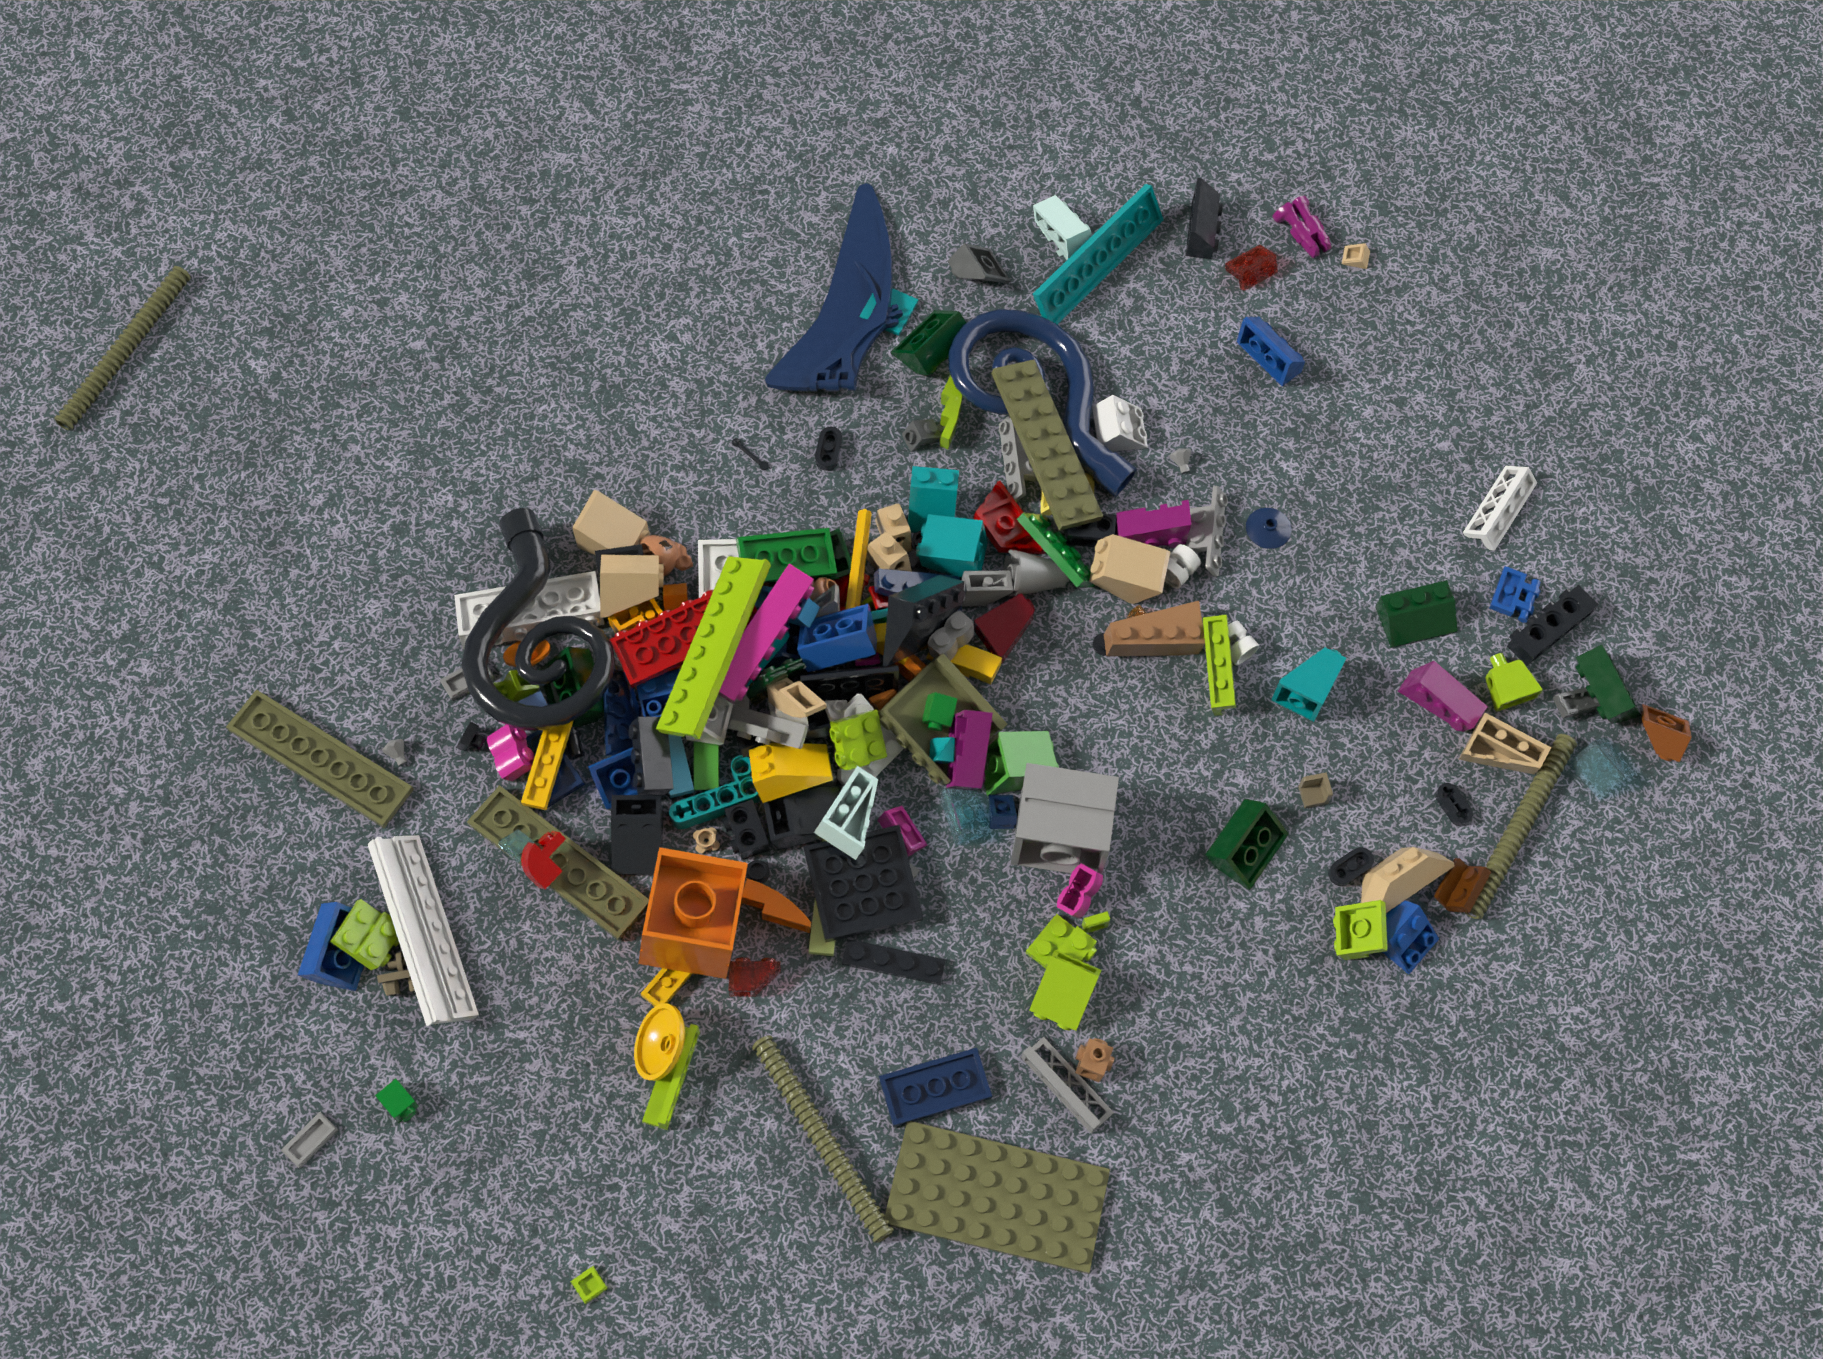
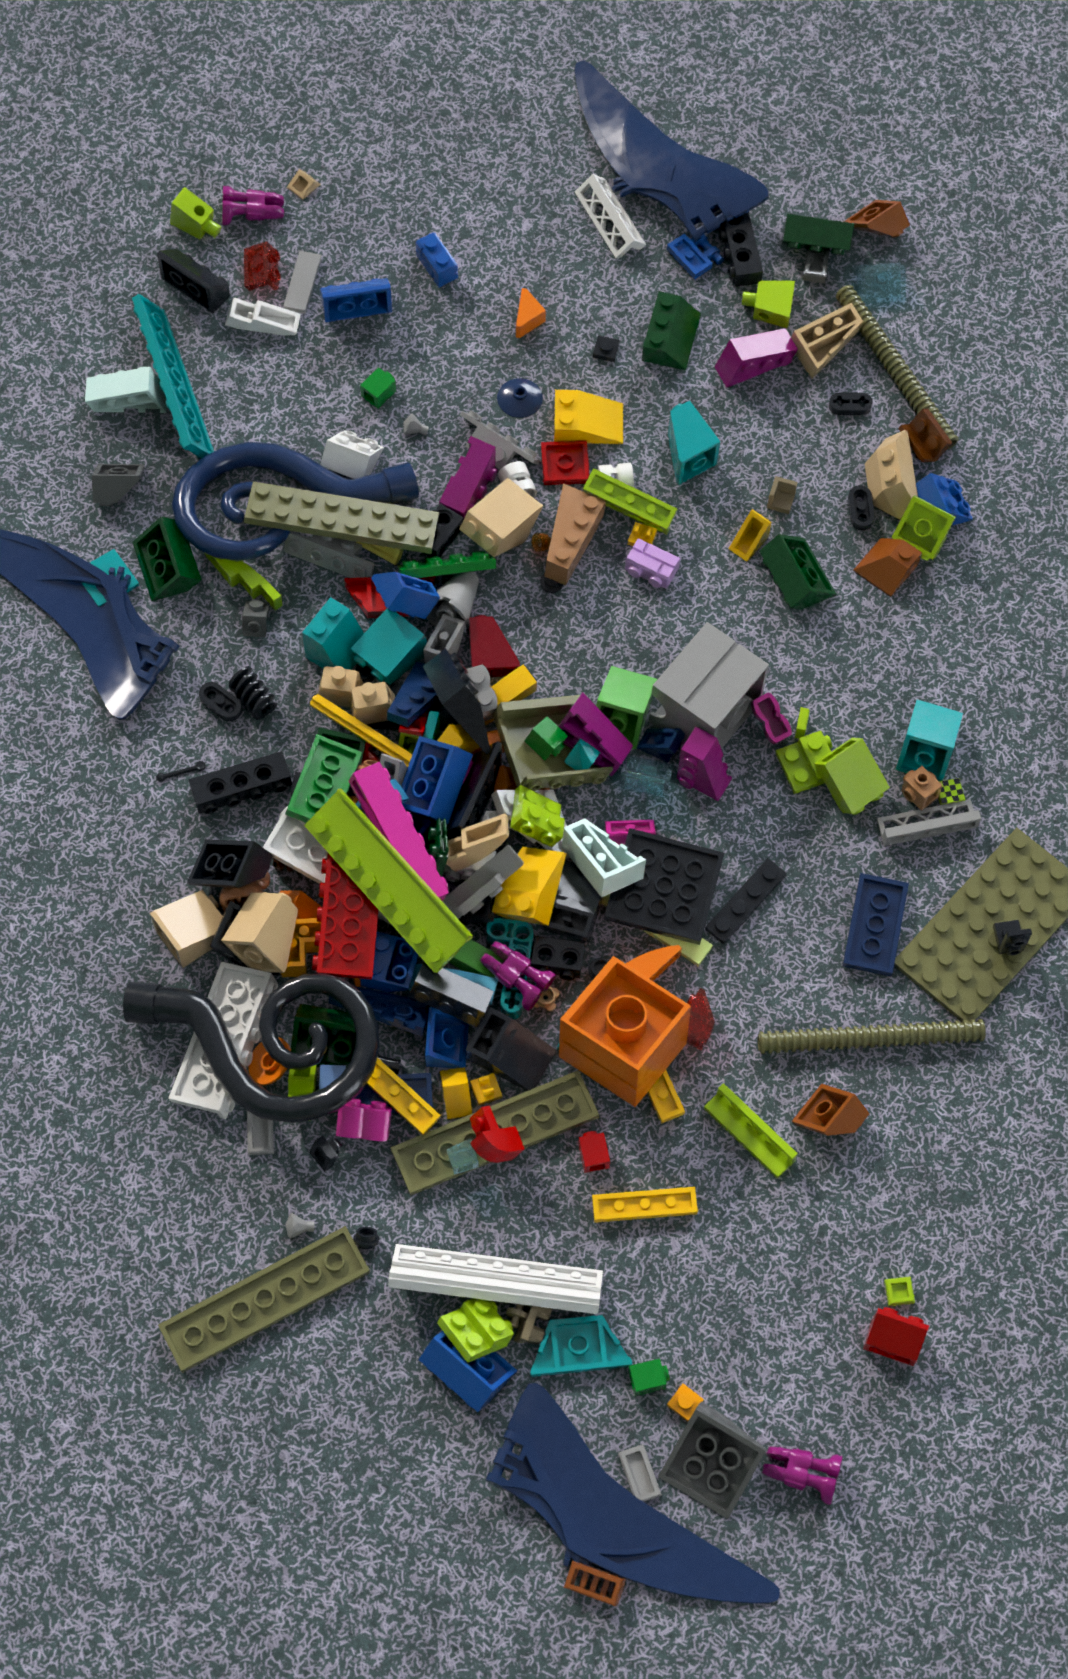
camera: 60 degrees left, 0 degrees up
(201, 1162) = (617, 1591): none -> dark orange slope
(253, 1129) = (603, 1520): none -> dark blue animal
(348, 1193) = (713, 1460): none -> dark grey slope
(376, 1273) = (796, 1469): none -> magenta piece
(392, 1146) = (684, 1402): none -> light orange plate
(398, 1030) = (578, 1346): none -> teal wing
(411, 808) = (366, 1237): none -> black plate
(537, 1301) = (896, 1336): none -> red slope
(556, 1019) = (644, 1204): none -> yellow plate
(578, 811) = (456, 1093): none -> yellow slope
(582, 951) = (593, 1151): none -> red brick
(595, 835) = (486, 1089): none -> yellow tile
(659, 1042) = (714, 1131): yellow dish -> none
(674, 528) = (230, 864): none -> black slope
(706, 795) = (512, 968): none -> magenta piece
(724, 1138) = (831, 1112): none -> dark orange slope
(742, 476) = (247, 772): none -> black brick
(849, 466) = (252, 693): none -> black piece
(987, 1214) = (1010, 937): none -> black bracket
(994, 854) = (702, 765): none -> magenta wedge
(1001, 528) = (406, 594): none -> blue slope
(1110, 1090) = (951, 791): none -> tile
(1148, 1043) = (929, 739): none -> teal slope
(1174, 715) = (652, 564): none -> lavender brick
(1197, 695) = (642, 532): none -> yellow tile
(1198, 412) = (378, 387): none -> green brick
(1204, 292) = (262, 318): none -> white slope
(1229, 595) = (565, 462): none -> red tile
(1255, 784) = (751, 535): none -> yellow slope
(1261, 189) = (193, 215): none -> lime torso
(1261, 304) = (302, 282): none -> light grey tile
(1282, 589) = (587, 418): none -> yellow slope
(1307, 920) = (889, 564): none -> dark orange slope
(1351, 490) = (530, 314): none -> orange slope
(1354, 391) = (436, 259): none -> blue brick
(1365, 571) = (606, 348): none -> black plate
(1577, 517) = (660, 167): none -> dark blue animal

